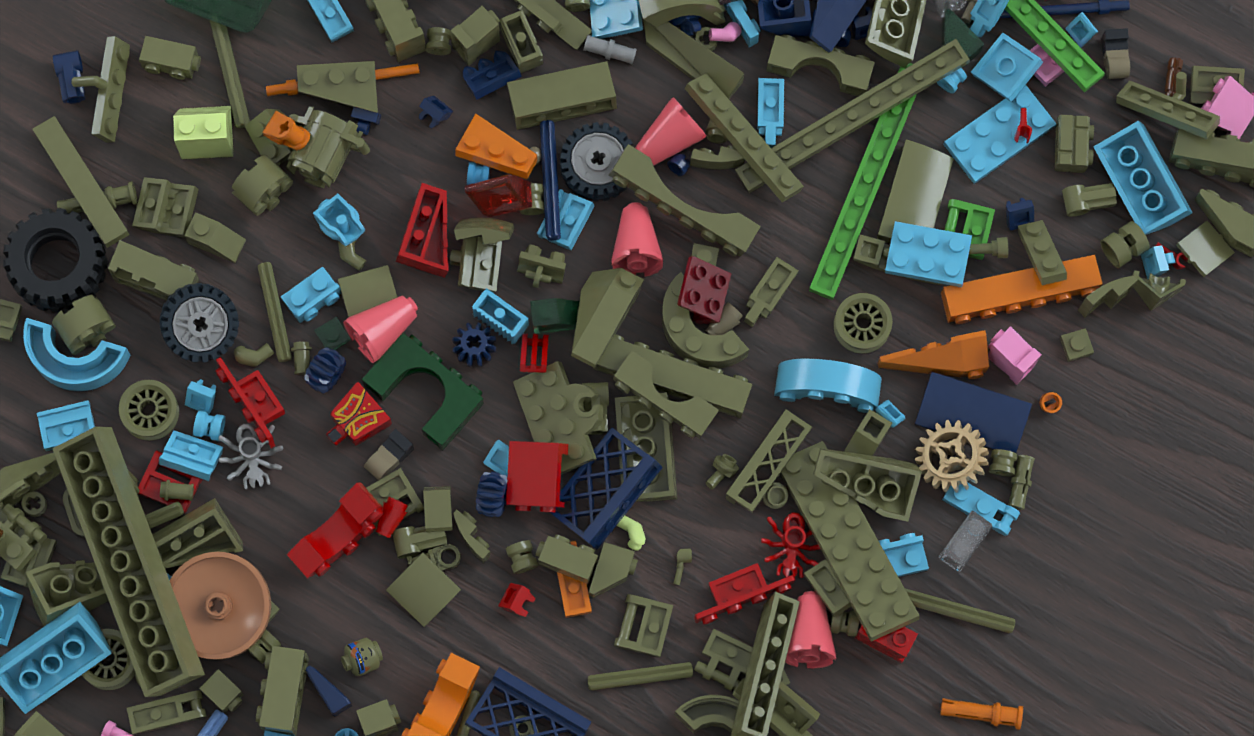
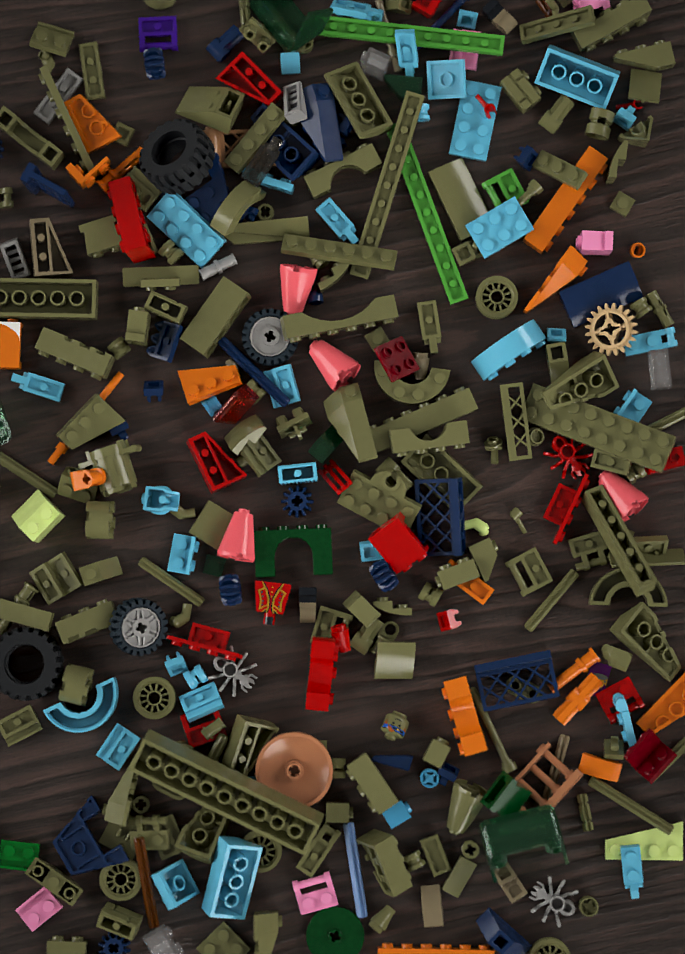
camera: 30 degrees left, 10 degrees up
(301, 357) = (210, 593): olive pin -> none
(726, 34) = (275, 199): bright pink arm -> none

